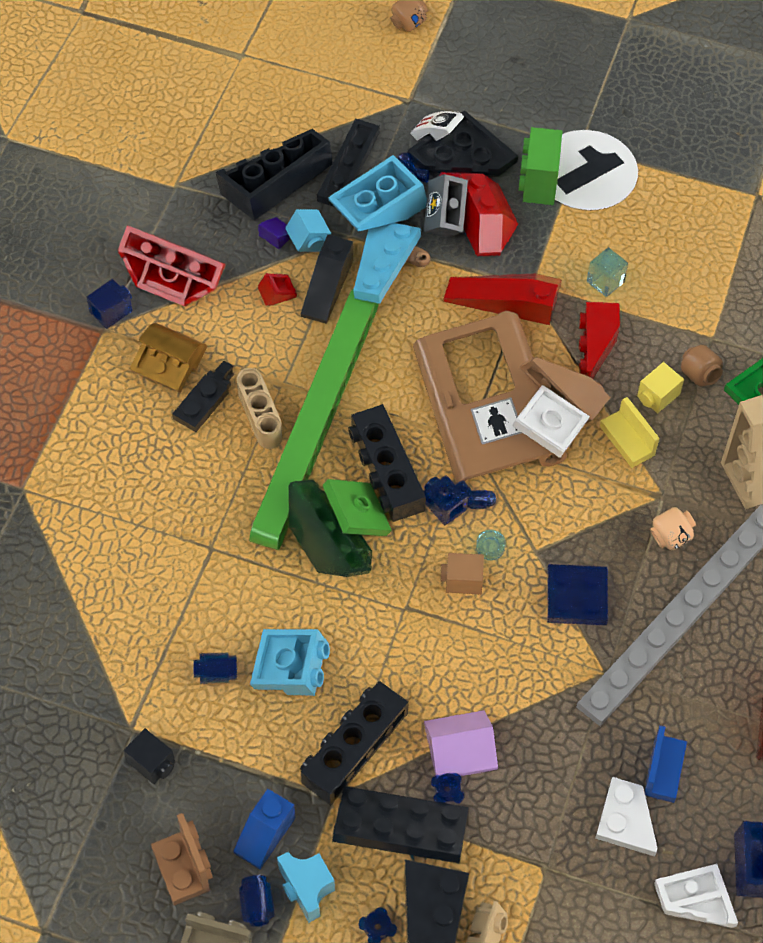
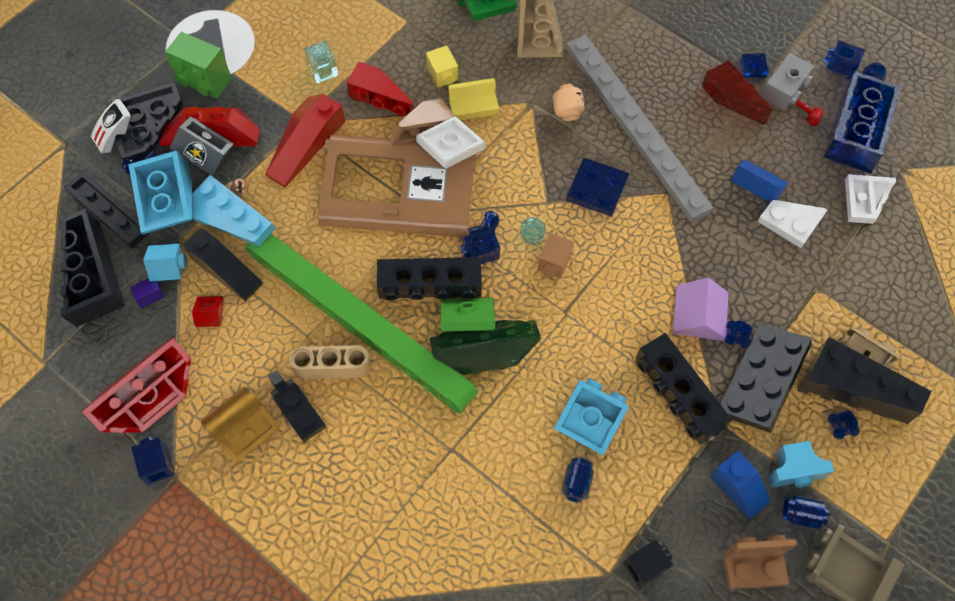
camera: 70 degrees left, 5 degrees up
(702, 365) = (434, 33): medium nougat head -> none

